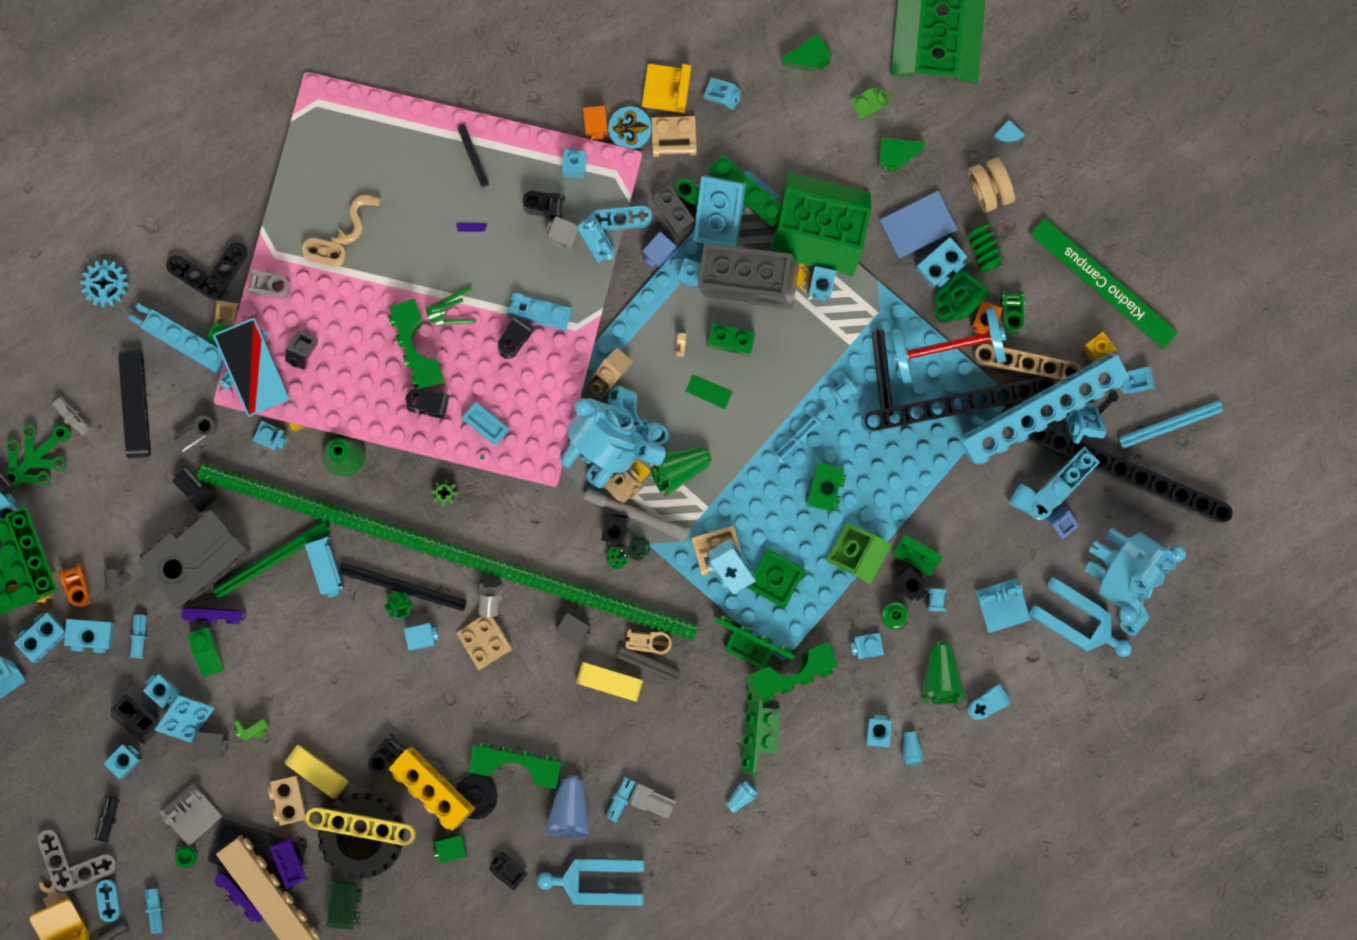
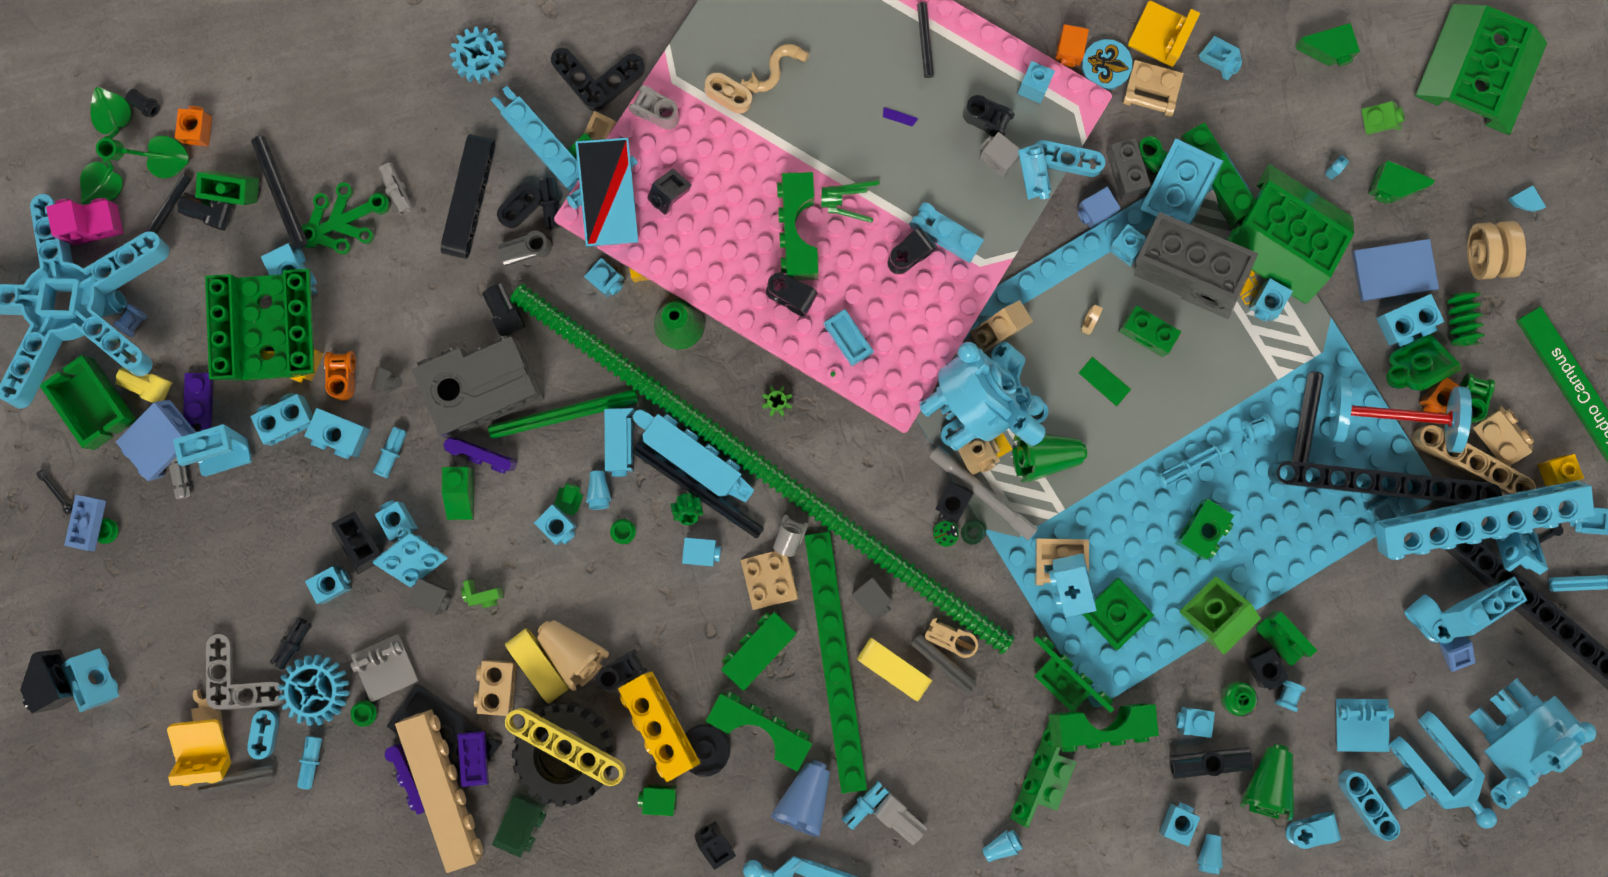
camera: 25 degrees right, 0 degrees up
(138, 860) = (303, 708): none -> medium azure gear
(178, 398) = (517, 204): none -> black plate
(204, 388) = (549, 202): none -> black axle
(286, 649) = (545, 523): none -> medium azure brick
(298, 628) = (569, 499): none -> green piece
(320, 613) = (598, 492): none -> medium azure cone
(341, 752) = (571, 653): none -> tan cone
(351, 640) = (623, 531): none -> green plate
(389, 561) = (692, 457): none -> medium azure hinge
(493, 701) = (757, 650): none -> green brick
(559, 691) = (835, 663): none -> green plate
(845, 153) = (1337, 167): none -> medium azure tile
(902, 669) = (1226, 762): none -> black piece
(965, 425) = (1382, 510): none -> medium azure tile
(1036, 671) = (1379, 811): none -> medium azure beam
(1047, 334) = (1504, 436): none -> tan bracket
(1054, 647) = (1406, 790): none -> medium azure tile

